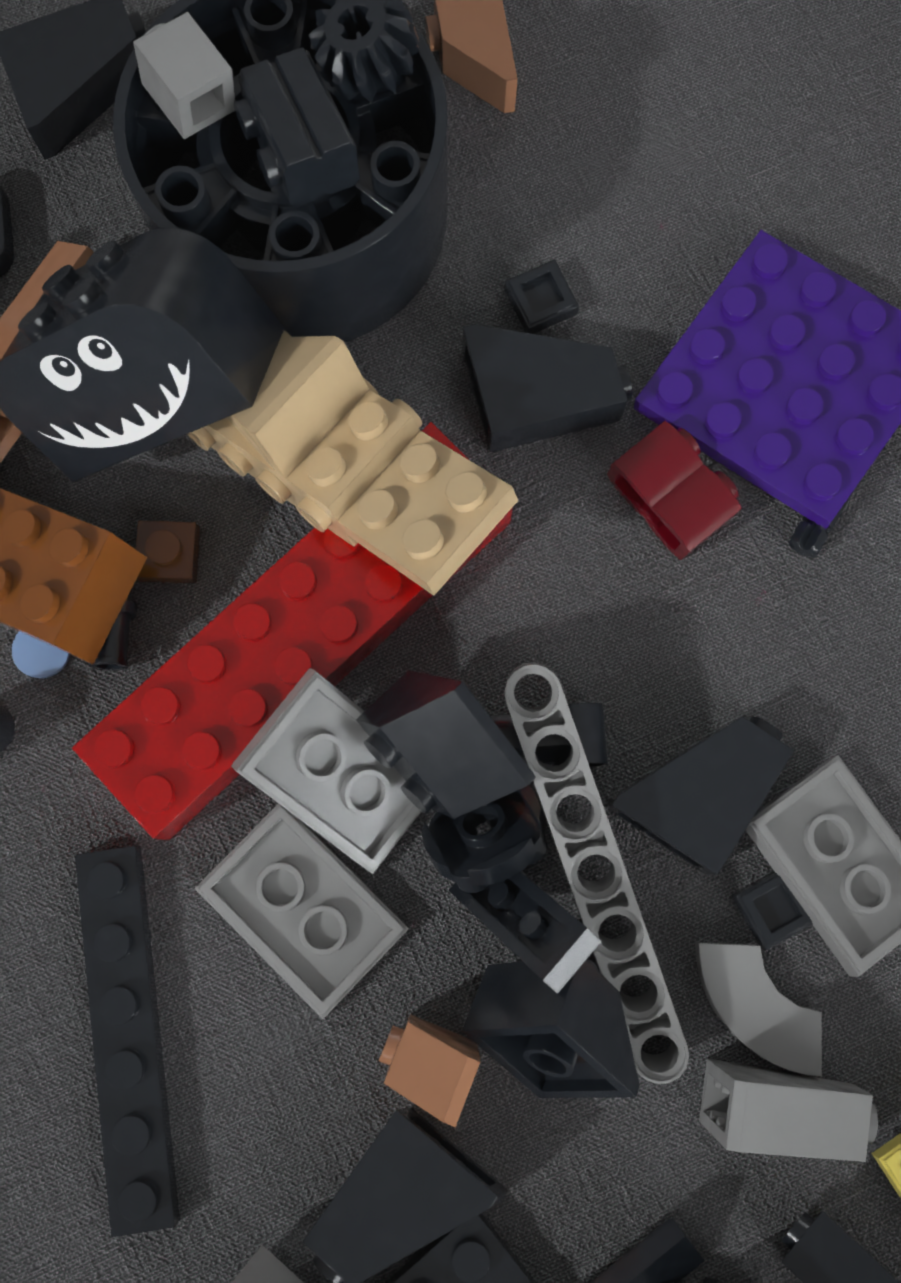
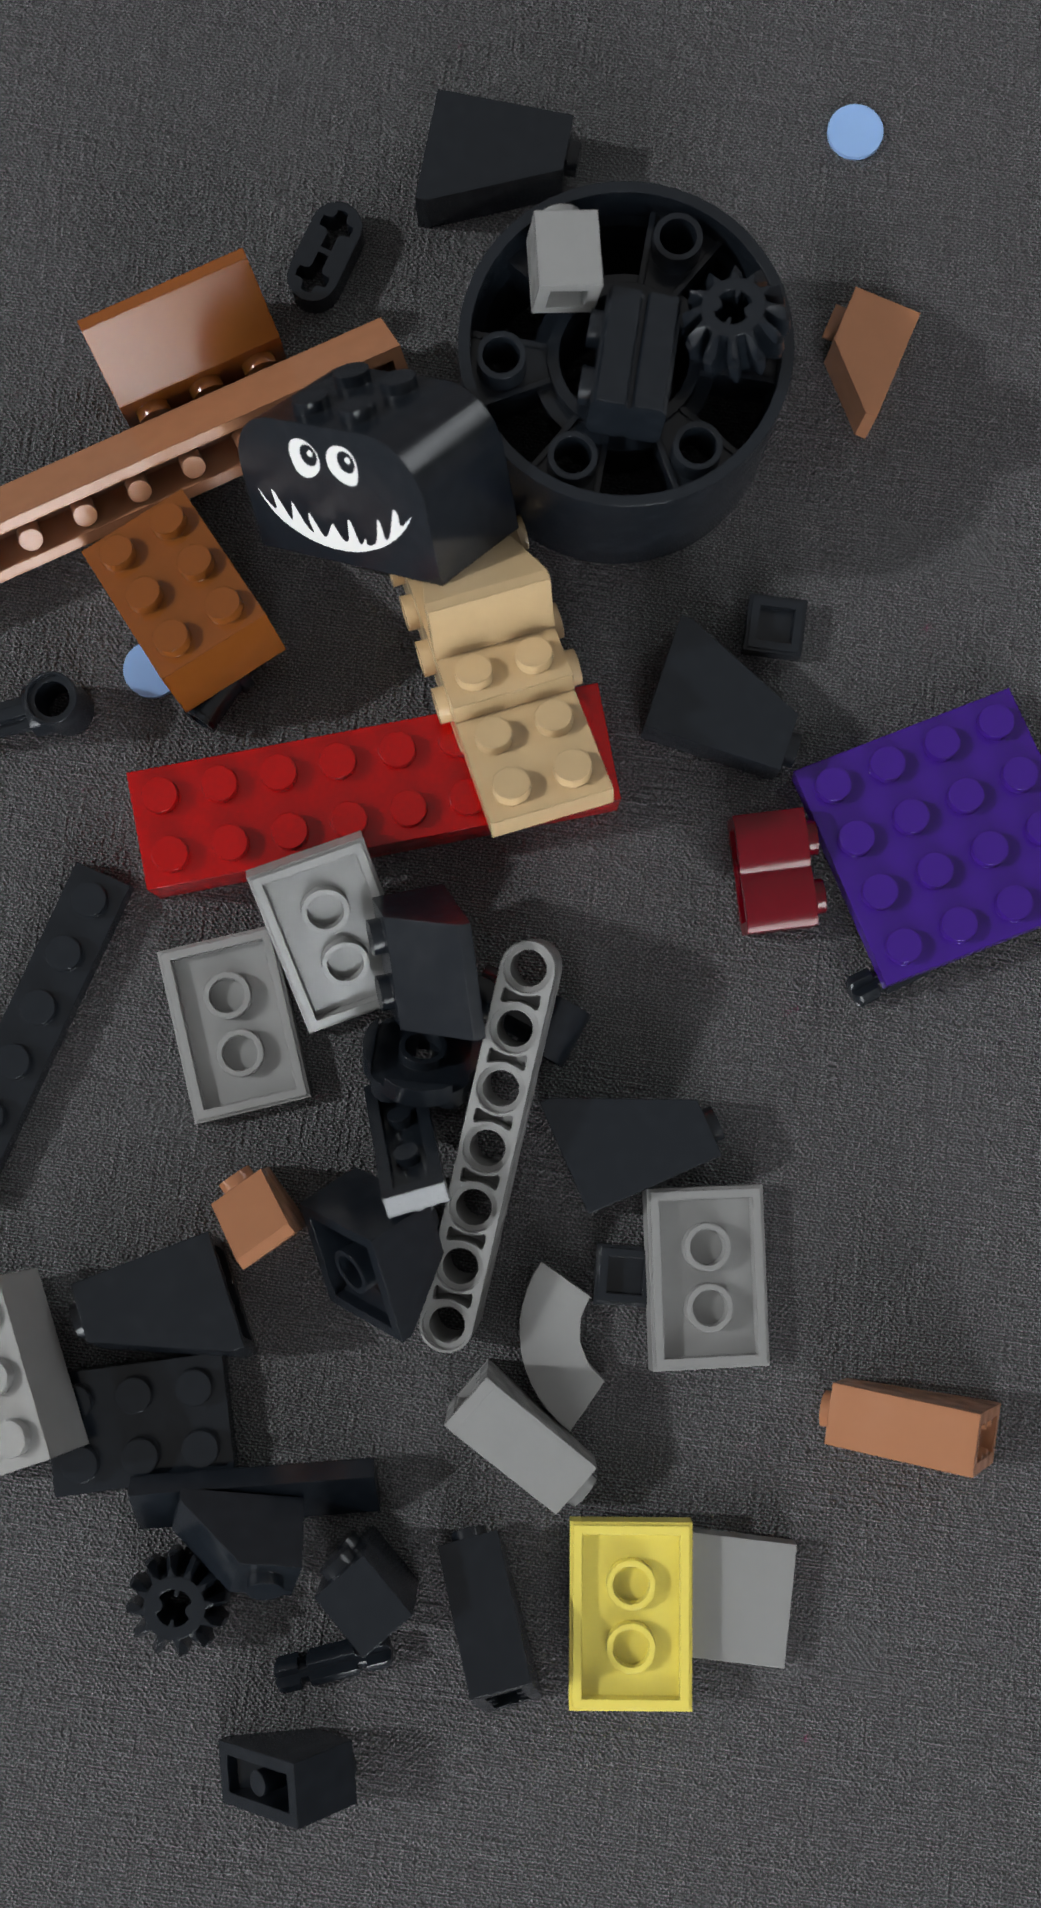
camera: 30 degrees right, 5 degrees up
(169, 550) = (310, 652): reddish brown plate -> none

